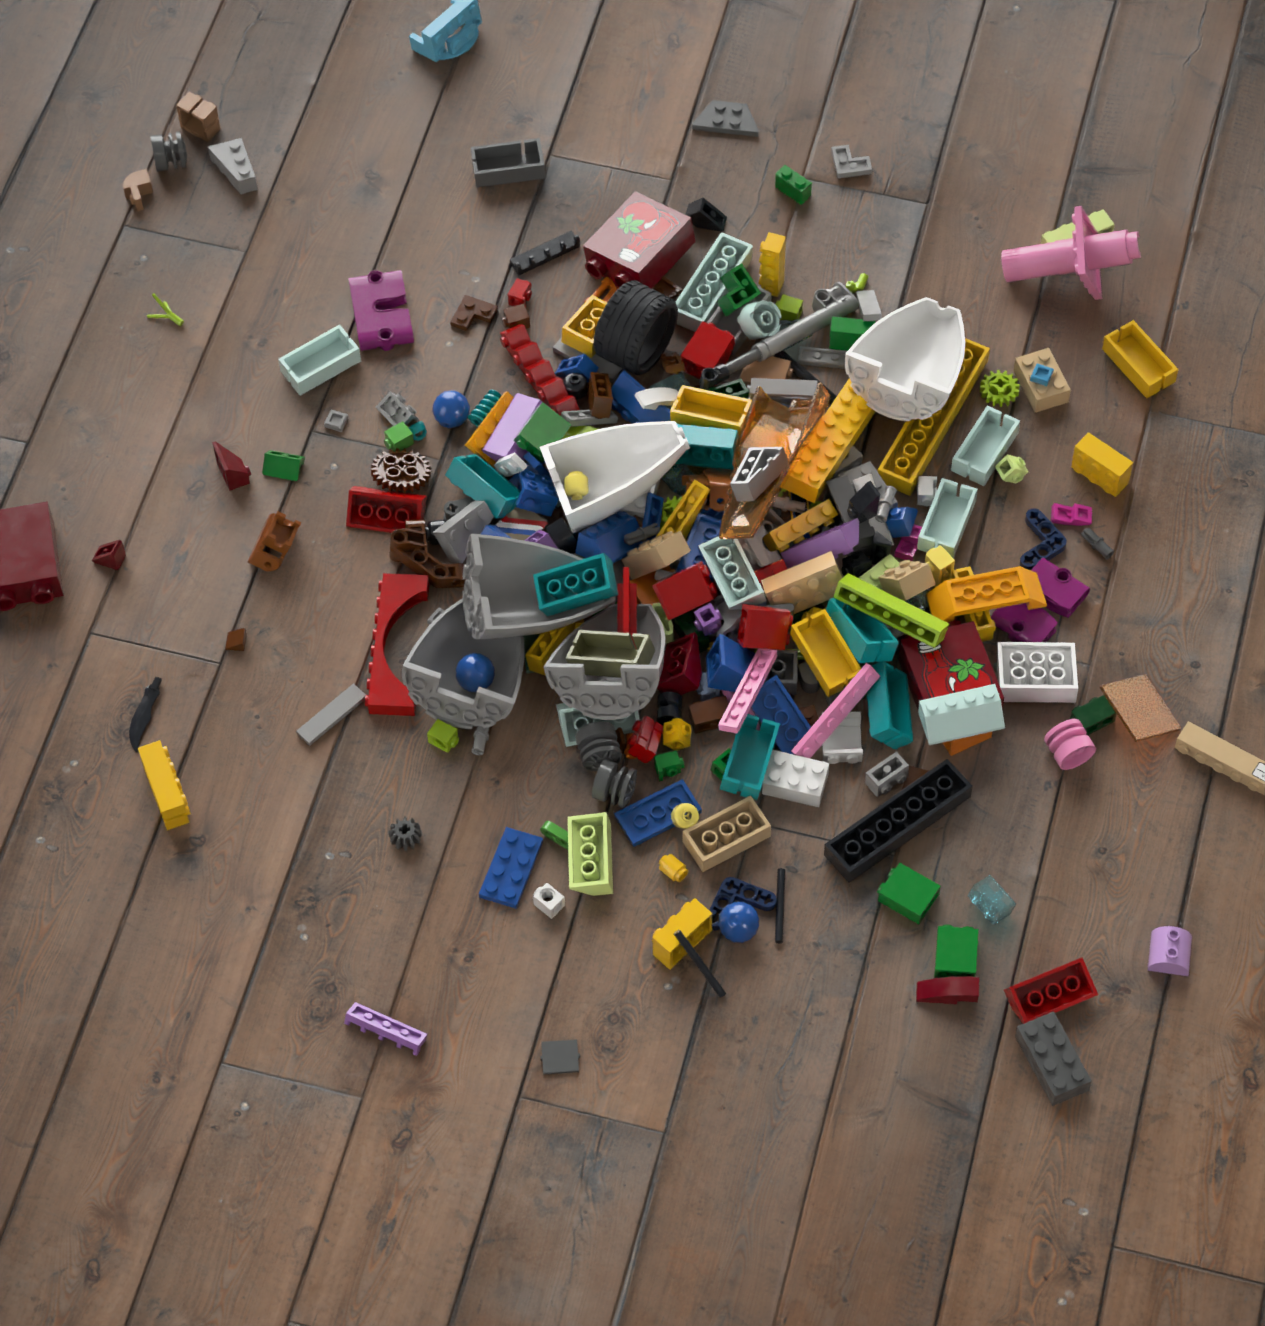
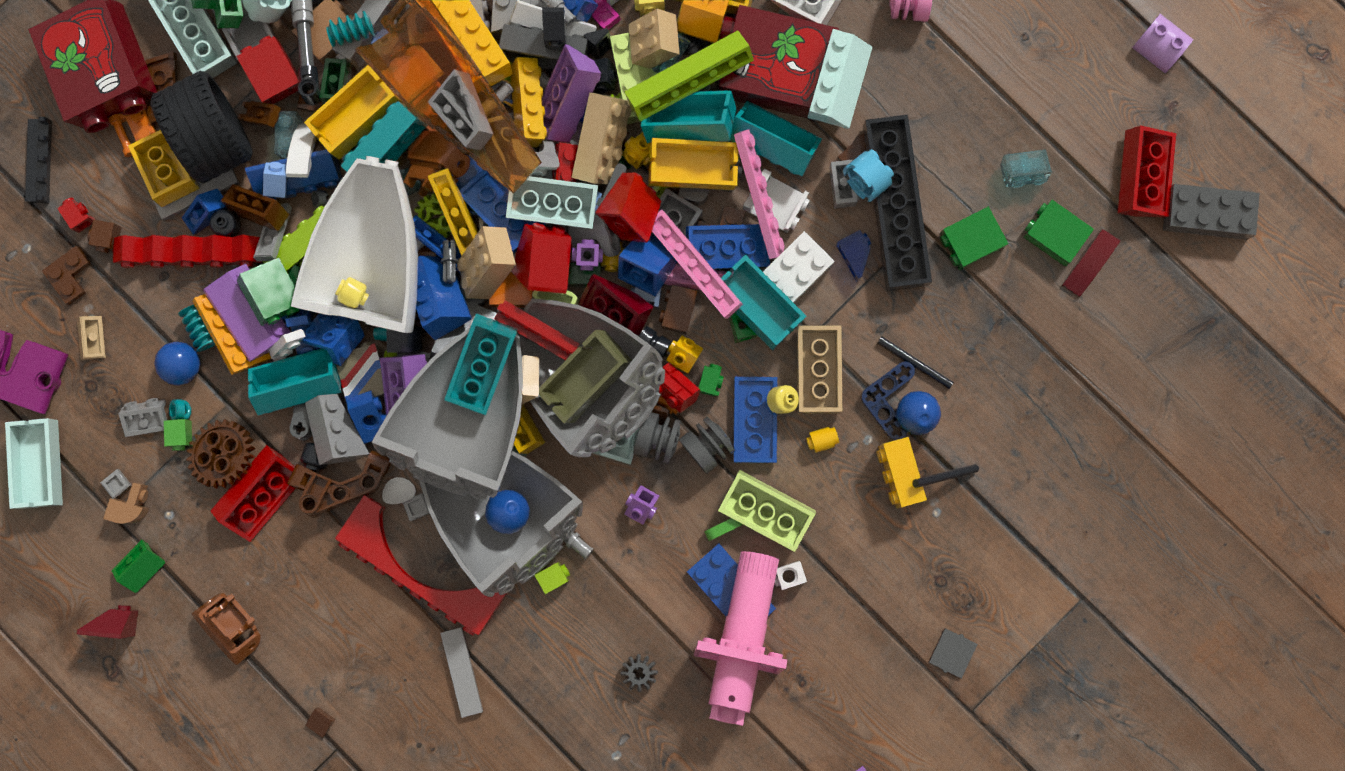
camera: 55 degrees left, 25 degrees up
(323, 438) = (131, 510): none -> medium nougat brick
(435, 350) = (91, 337): none -> tan slope
(444, 599) = (398, 491): none -> white sticker
(466, 881) = (742, 641): none -> bright pink piece
(538, 765) = (641, 505): none -> medium lavender brick
(584, 622) = (530, 372): none -> slope
(625, 392) = (274, 180): none -> light blue brick
(771, 378) = (349, 29): none -> teal piece
(838, 814) = (855, 252): none -> clear blue slope
(901, 775) = (868, 175): none -> medium azure brick

